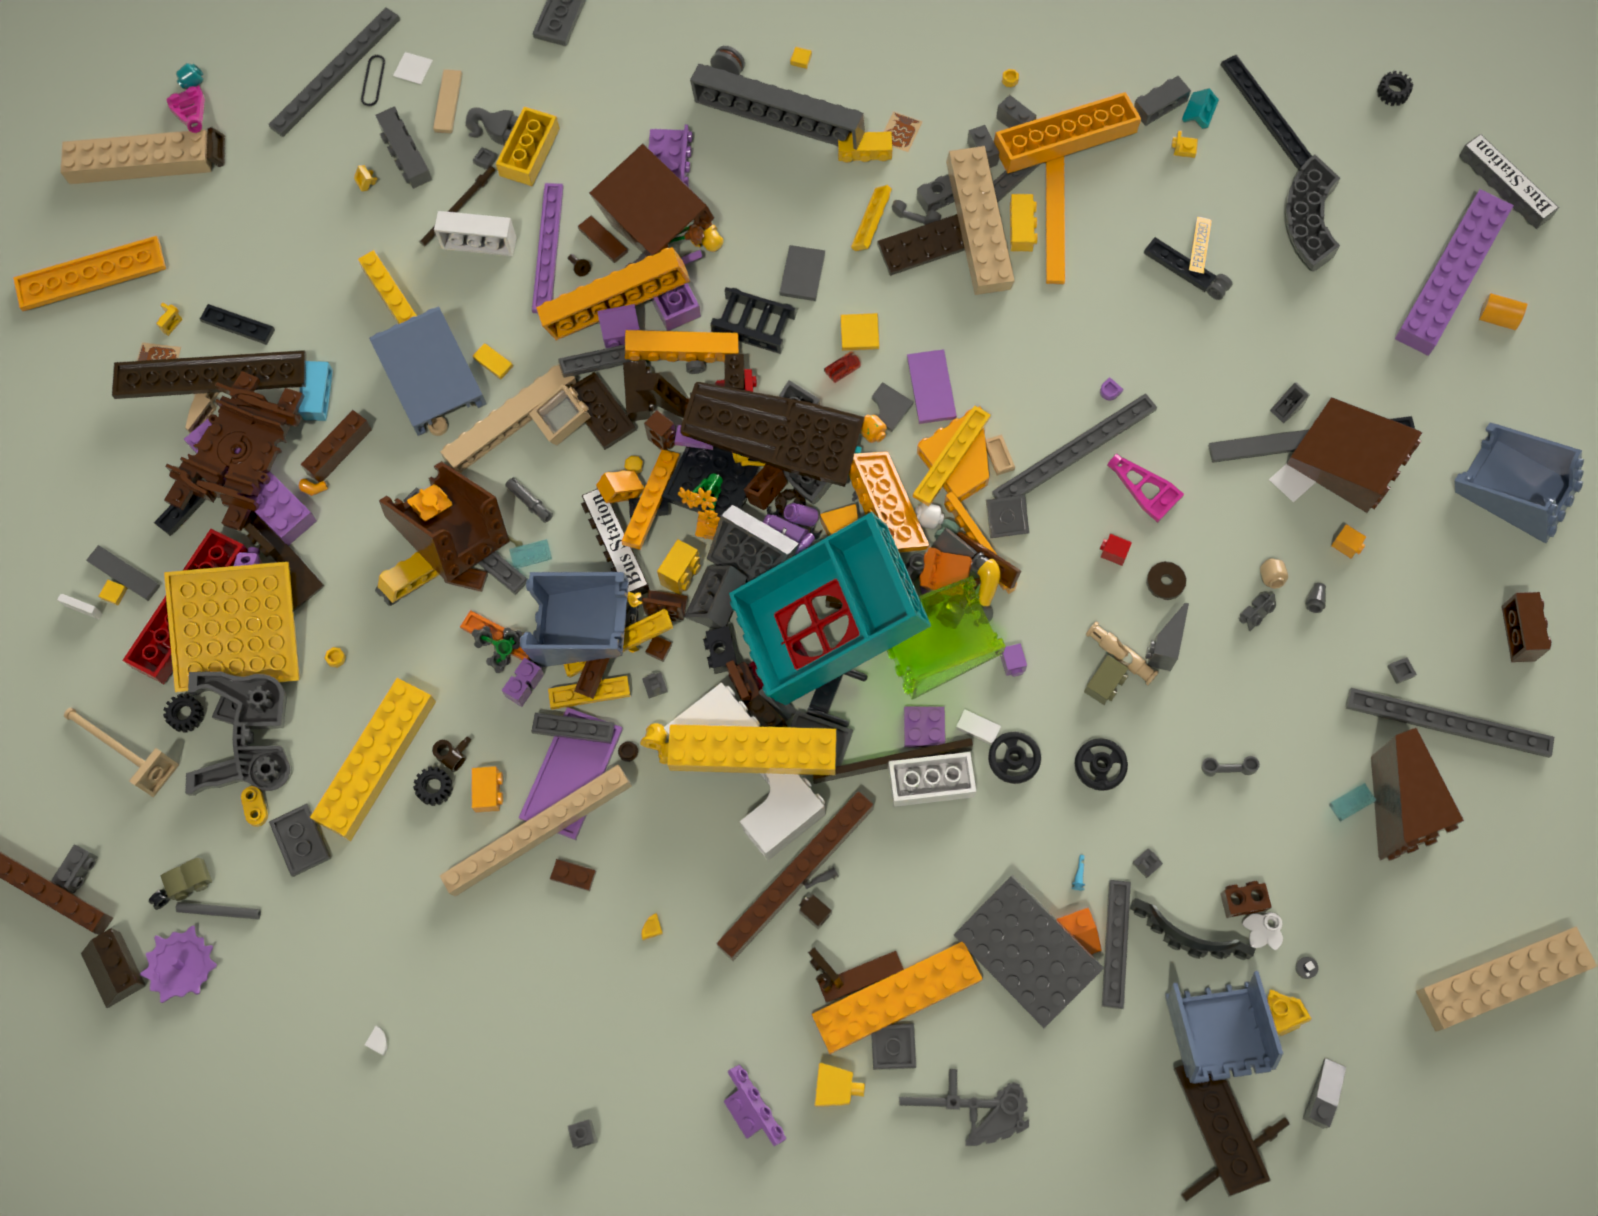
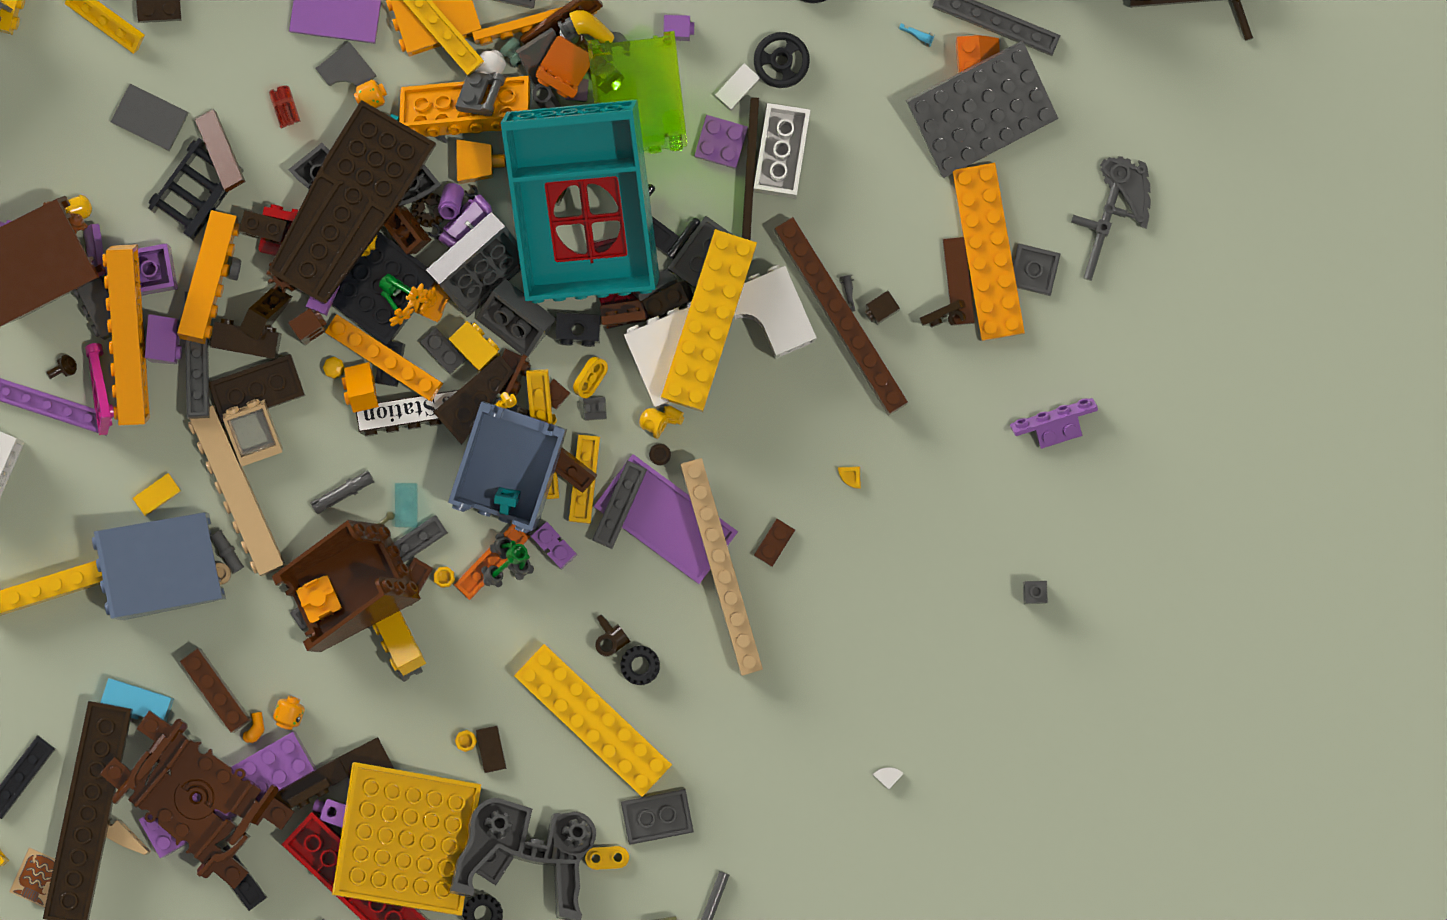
camera: 75 degrees left, 15 degrees up
(329, 508) = (288, 713): none -> light orange head
(332, 681) = (491, 749): none -> dark brown tile
(456, 424) = (227, 551): none -> dark grey pin
(475, 600) = (444, 577): none -> yellow tile
(486, 789) = (660, 610): light orange brick -> none
(549, 293) = (103, 410): none -> dark pink plate
(552, 629) = (507, 499): none -> teal tile
(602, 239) = (35, 332): reddish brown tile -> none
(640, 577) = (461, 408): none -> dark brown wing
(668, 543) = (443, 351): none -> dark grey plate
(681, 672) = (590, 377): none -> yellow plate
(789, 327) = (220, 150): none -> tile
(836, 1086) = (1058, 336): yellow torso -> none
(859, 331) = (244, 75): yellow tile -> none
(900, 508) = (474, 92): none -> dark grey plate

